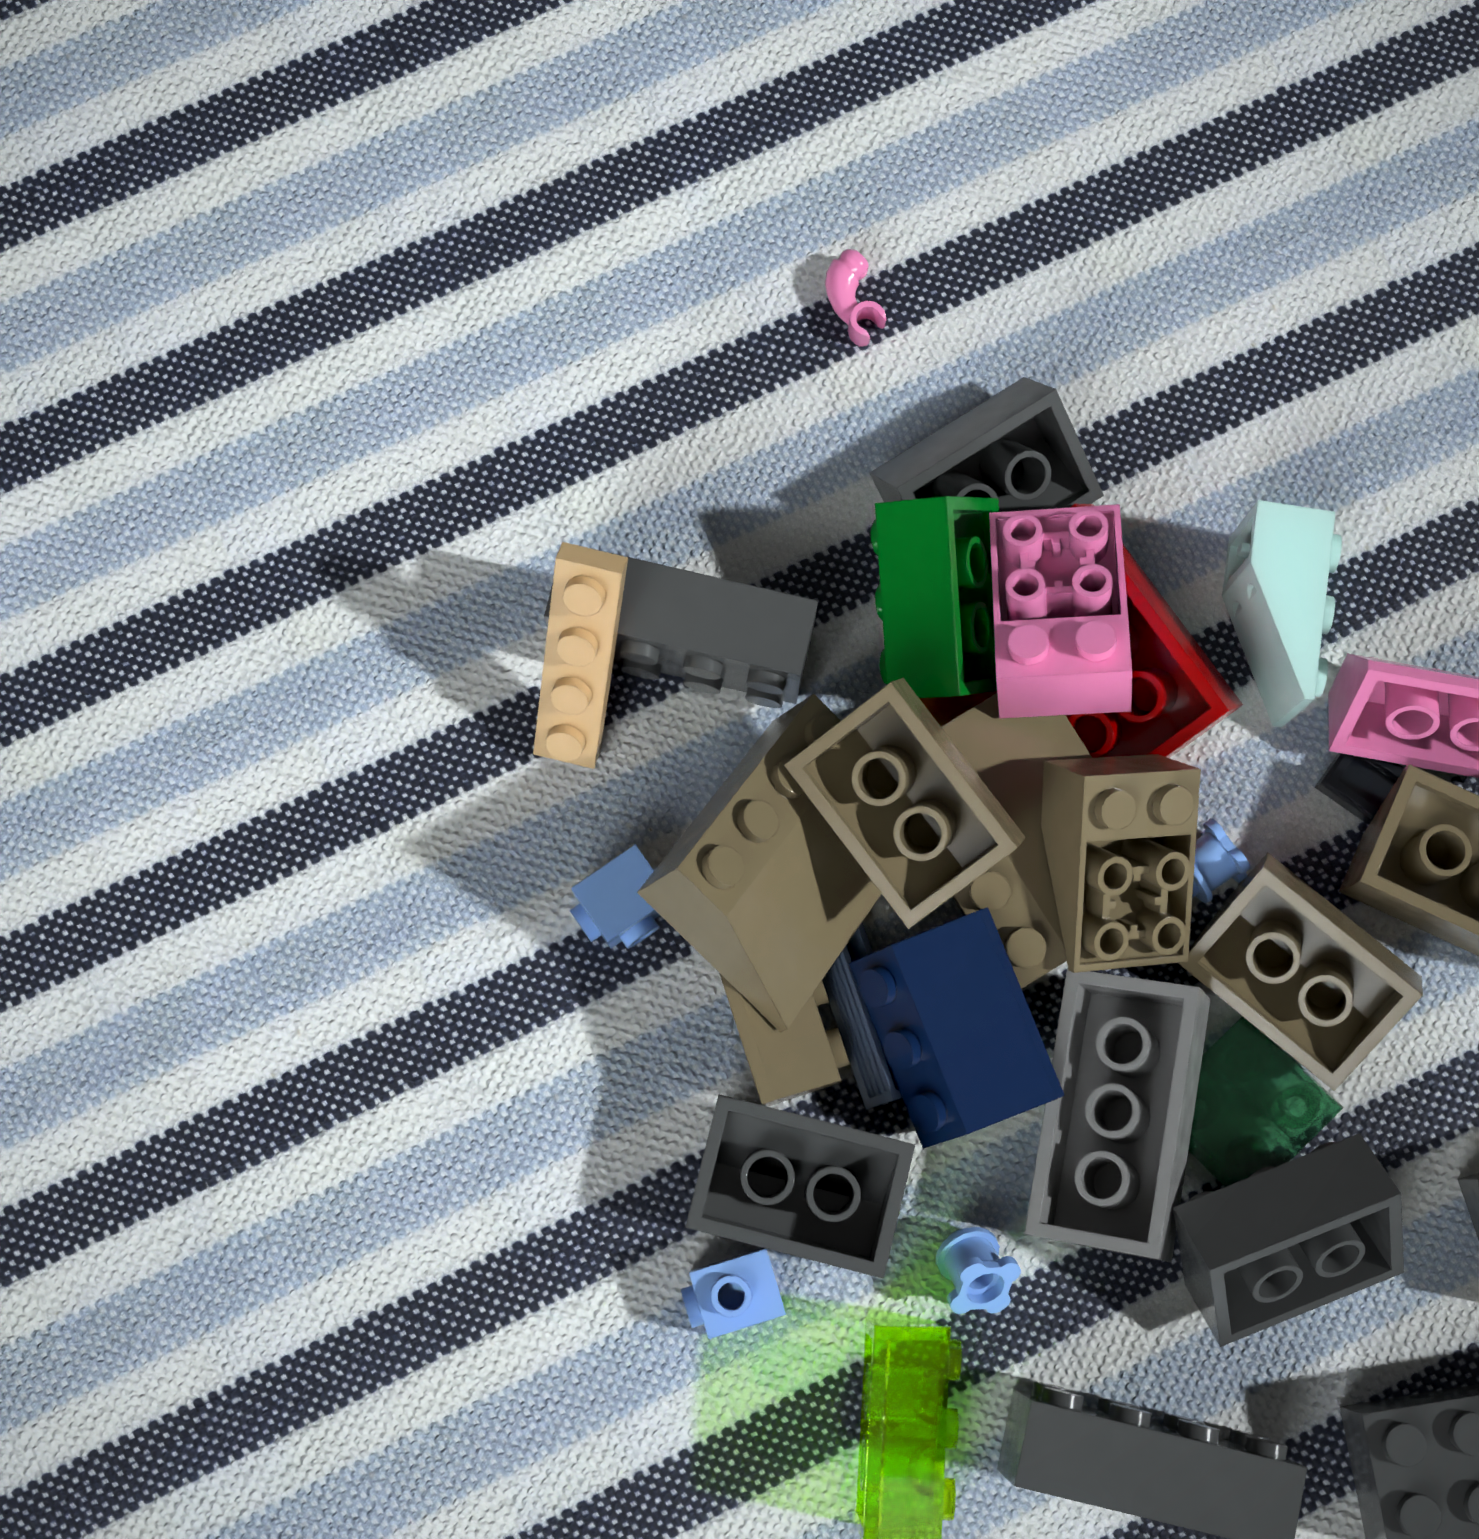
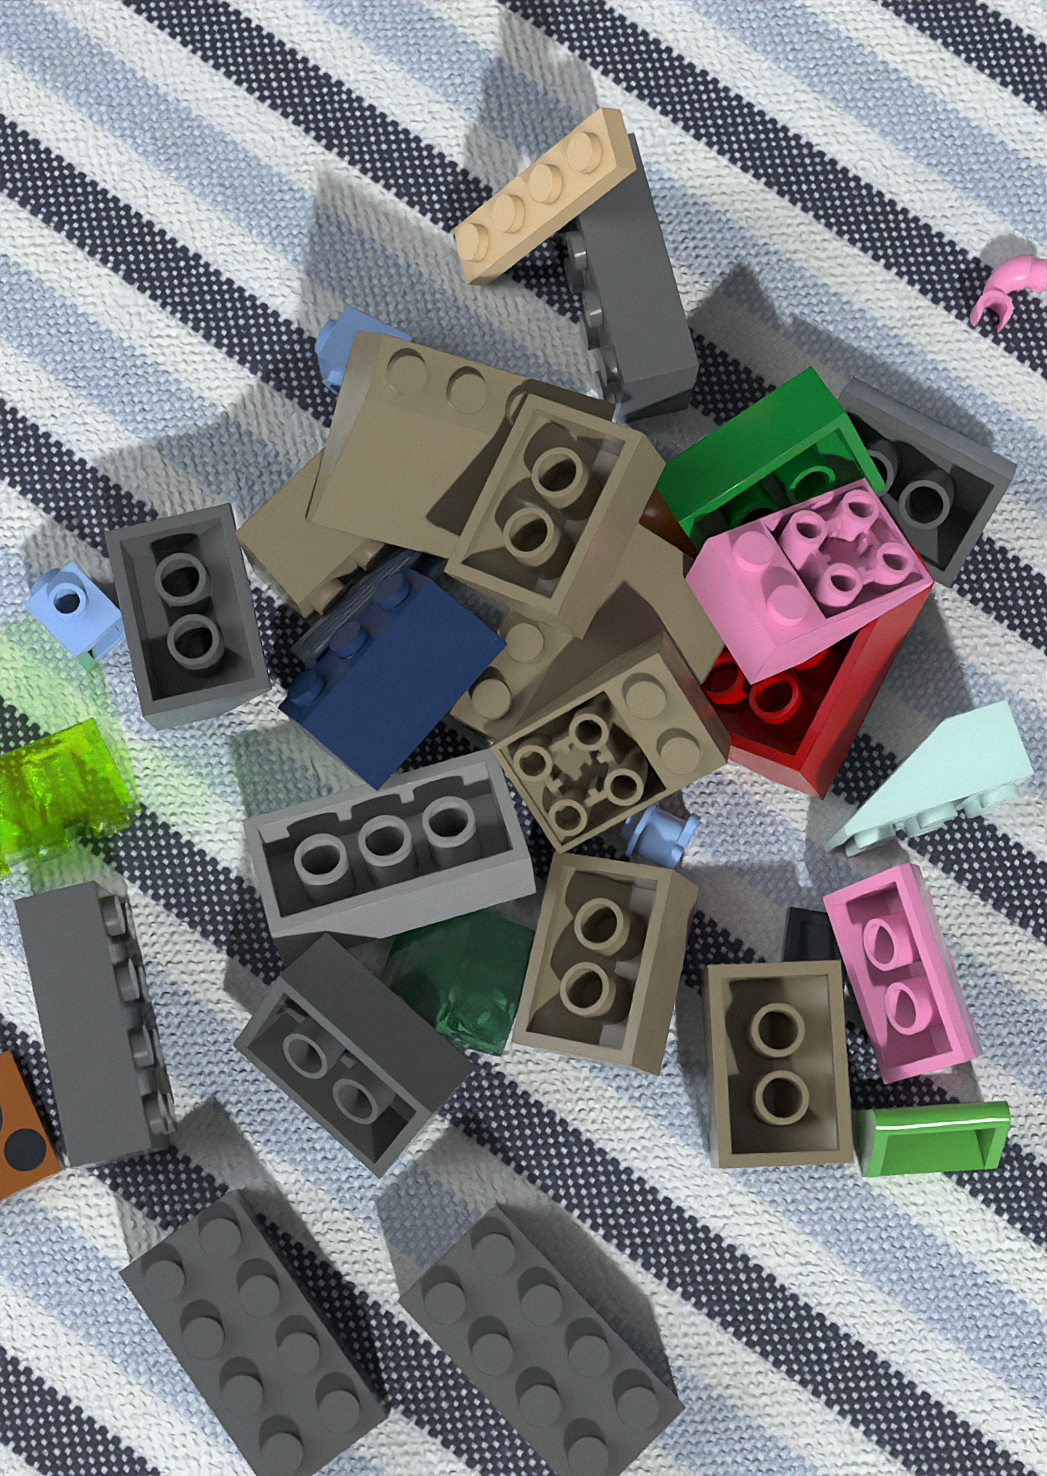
camera: 60 degrees right, 0 degrees up
(974, 1266) = (195, 806): light blue brick -> none

